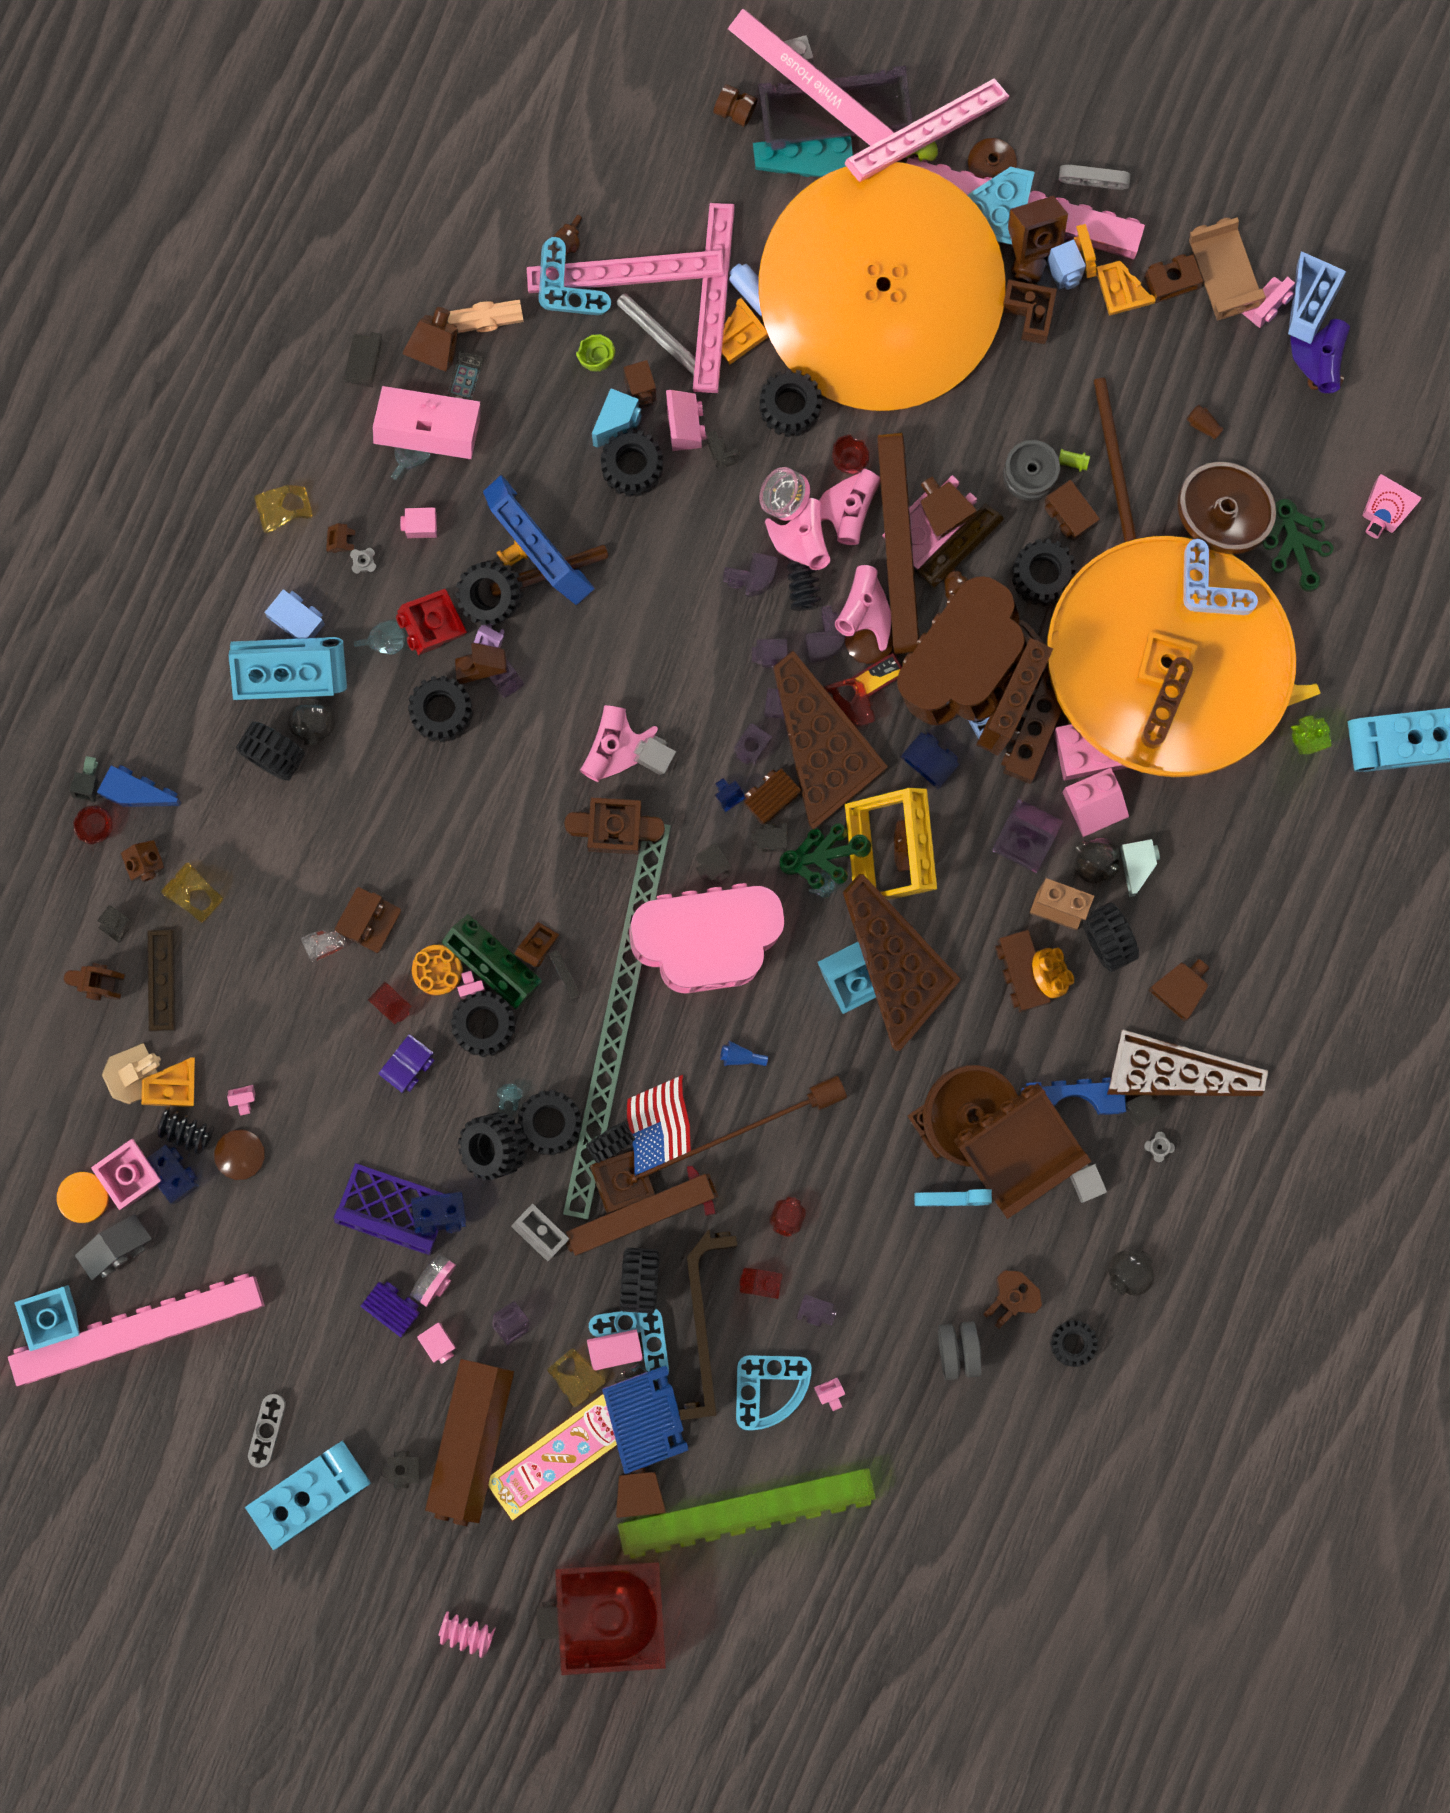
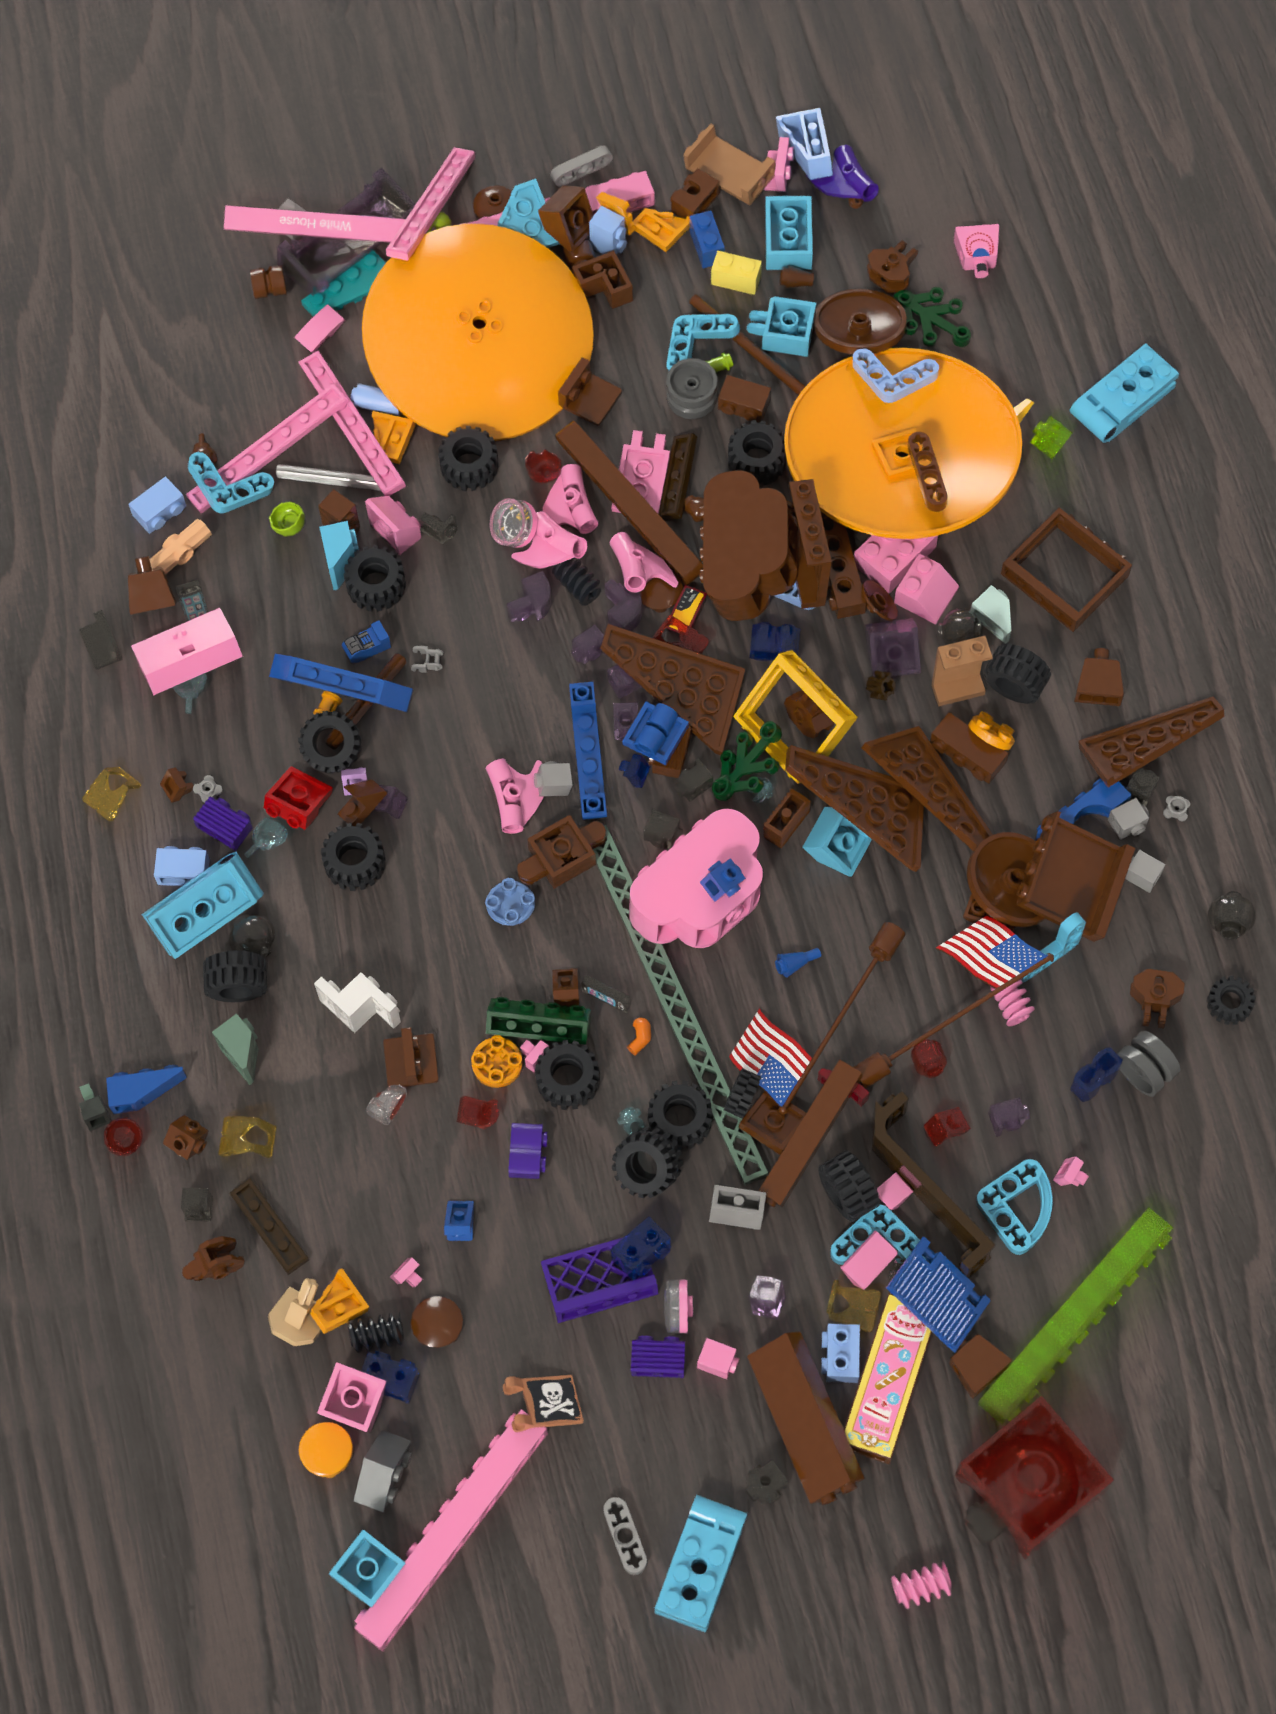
camera: 30 degrees left, 15 degrees down
(235, 814) = (238, 1044): none -> sand green slope
(280, 1283) = (548, 1401): none -> flag
(313, 1084) = (459, 1220): none -> blue slope
(354, 601) = (223, 823): none -> dark purple brick
(356, 842) = (358, 1001): none -> white bracket
(419, 523) = (234, 730): bright pink brick -> none
(495, 262) = (157, 505): none -> light blue brick
(538, 1408) = (842, 1353): none -> light blue brick
(543, 839) = (510, 902): none -> medium blue dish
(570, 1031) = (643, 1035): none -> orange arm
(584, 518) = (367, 643): none -> blue leg
(622, 573) = (429, 652): none -> light grey piece
(676, 1307) = (894, 1191): none -> bright pink slope
(700, 752) = (587, 750): none -> blue slope
(717, 956) = (723, 879): none -> blue brick
(750, 183) = (319, 328): none -> bright pink slope
(765, 777) = (656, 732): none -> blue plate
(822, 927) = (786, 818): none -> reddish brown brick
(894, 1213) = (1013, 1004): none -> bright pink piece
(900, 1166) = (989, 954): none -> flag
(905, 1329) = (1094, 1075): none -> clear blue brick
(939, 412) = (587, 394): none -> reddish brown bracket
(945, 507) = (646, 453): reddish brown torso -> none
(966, 967) = (921, 771): none -> reddish brown wing
(991, 862) = (881, 685): none -> dark brown gear
(1047, 785) = (879, 600): none -> reddish brown dish
(1076, 414) = (694, 331): none -> medium azure beam
(1111, 1129) = (1129, 819): none -> light grey brick
(1152, 330) = (706, 237): none -> blue brick
(1154, 381) = (736, 272): none -> light yellow brick
(1158, 452) = (786, 325): none -> medium azure hinge
(1228, 375) = (788, 232): none -> medium azure brick
(1269, 846) = (1043, 595): none -> reddish brown window
(1297, 470) = (891, 266): none -> reddish brown hinge

